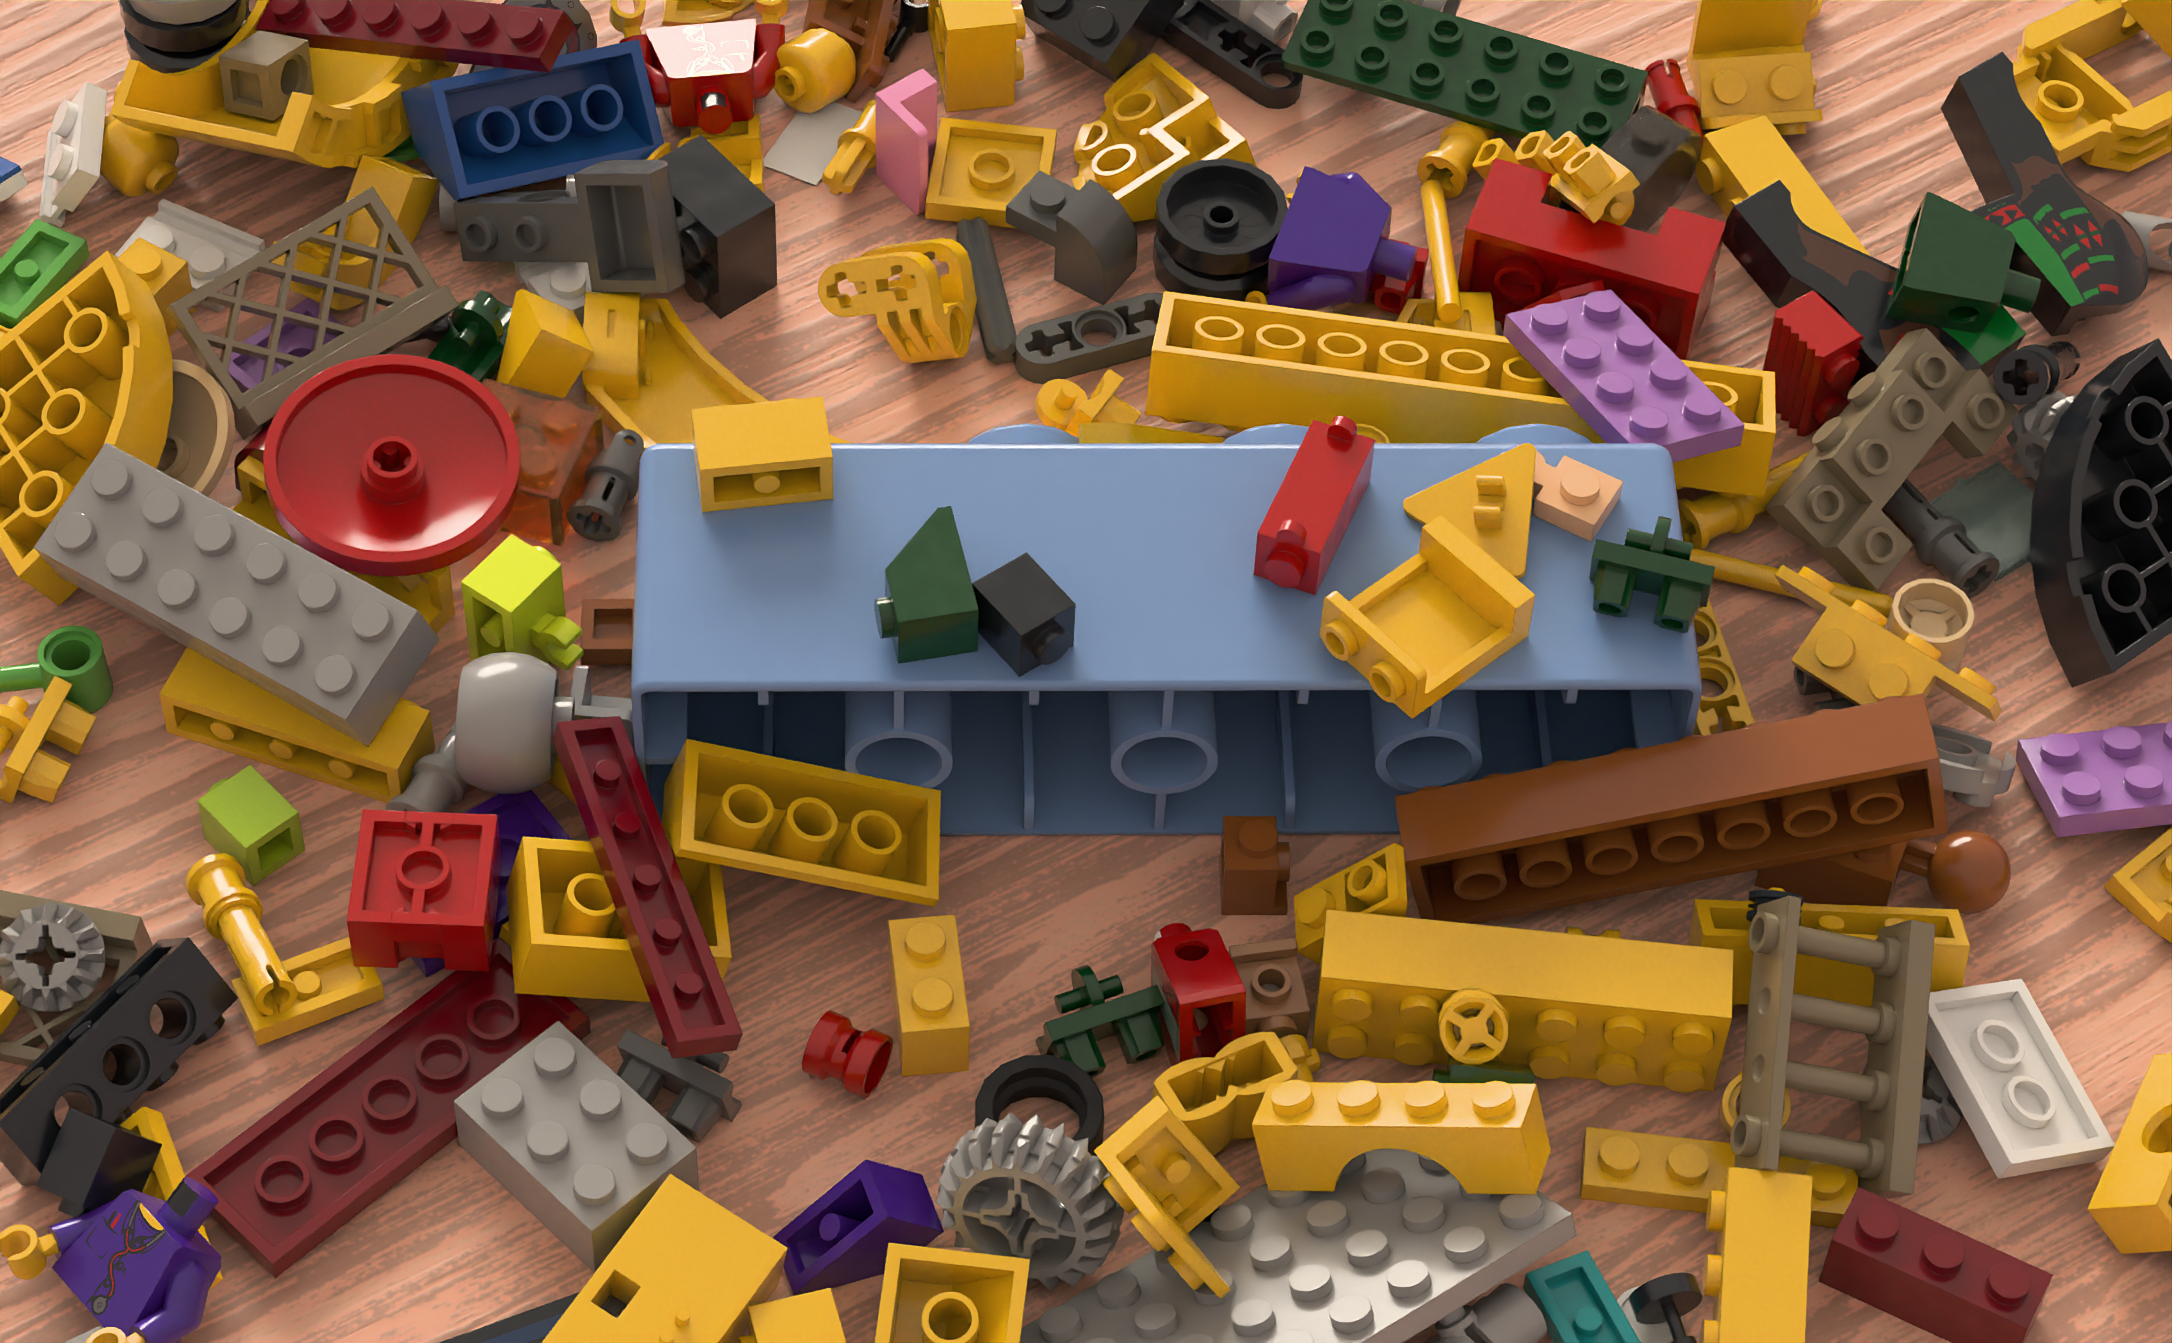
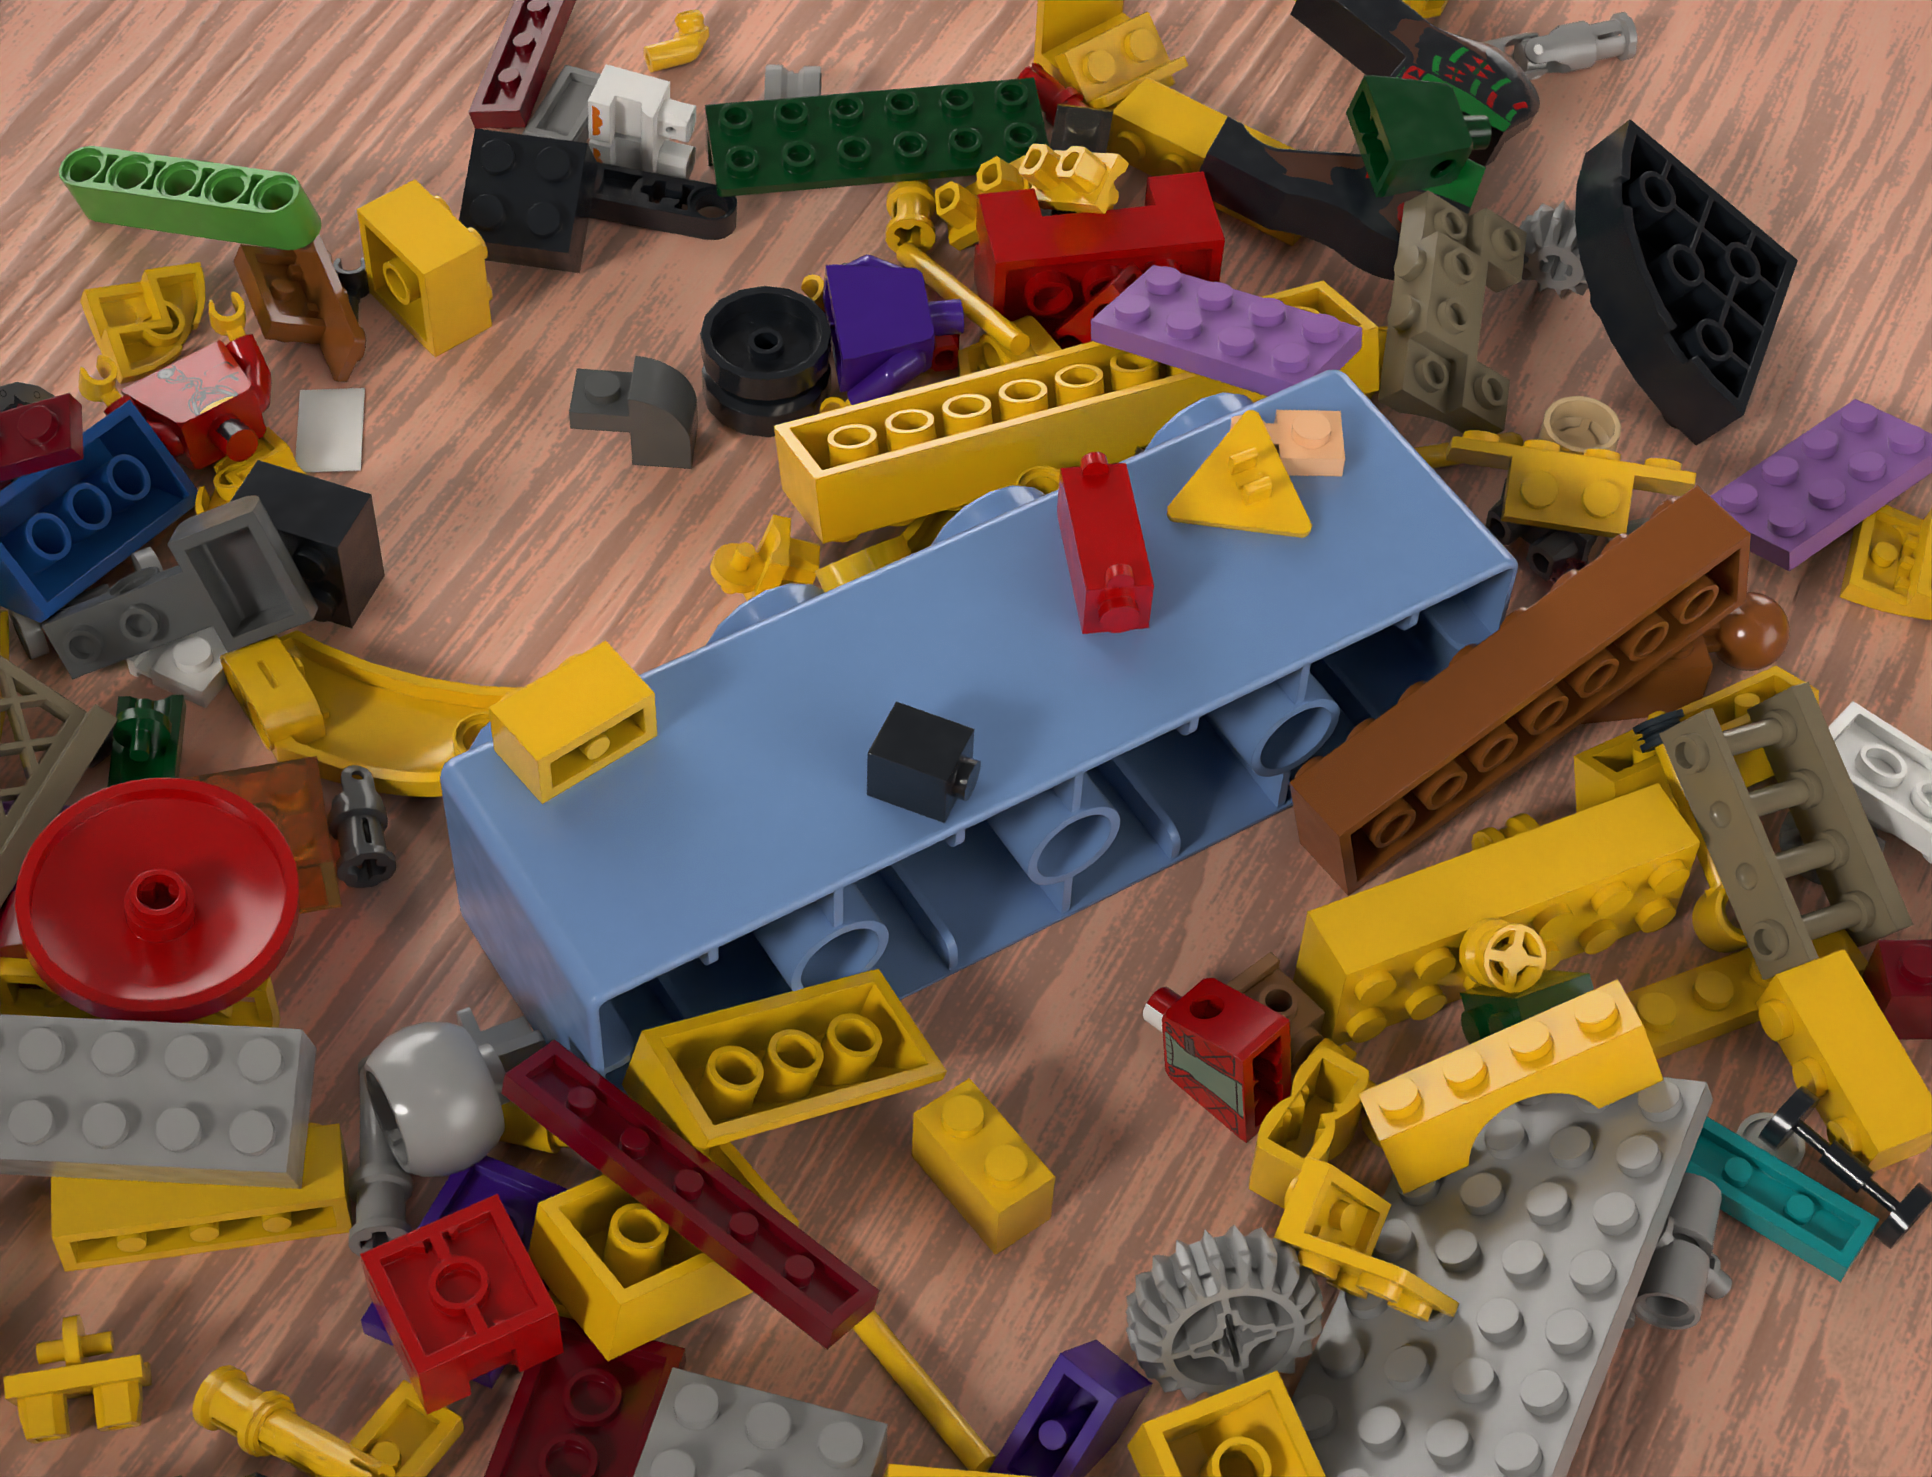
camera: 30 degrees left, 0 degrees up
(141, 827) = (44, 1393): none -> yellow hips
(252, 823) = (220, 1321): lime brick -> none
(519, 606) = (363, 986): neon yellow brick -> none
(543, 346) = (216, 724): yellow slope -> none
(607, 631) = (454, 963): dark orange plate -> none
(701, 1092) = (840, 1369): dark grey hips -> none
(759, 1115) = (924, 1393): none -> yellow bar
(814, 70) = (301, 362): yellow head -> none
(847, 1054) = (929, 1263): red wheel -> none
(854, 153) = (385, 418): yellow axle -> none
(907, 137) = (436, 392): bright pink panel -> none
(916, 312) = (550, 540): yellow piece -> none
(929, 595) = (827, 782): dark green slope -> none
(984, 167) = (515, 392): yellow plate -> none
(992, 304) = (585, 498): dark grey axle -> none
(1047, 1078) = (1144, 1187): black tyre -> none
(1085, 357) = (706, 521): dark grey beam -> none
(1128, 1017) = (1136, 1142): dark green hips -> none
(1150, 131) = (644, 301): yellow brick -> none
(1253, 867) = (1186, 897): dark orange brick -> none
(1367, 886) = (1315, 877): yellow slope -> none
(1429, 620) = (1270, 602): yellow panel -> none
(1654, 567) = (1426, 470): dark green hips -> none
(1812, 362) = (1337, 249): red brick -> none
(1942, 541) = (1530, 371): dark grey pin -> none
(1995, 514) = (1542, 335): clear light blue piece -> none
(2034, 371) = (1518, 187): black pin -> none

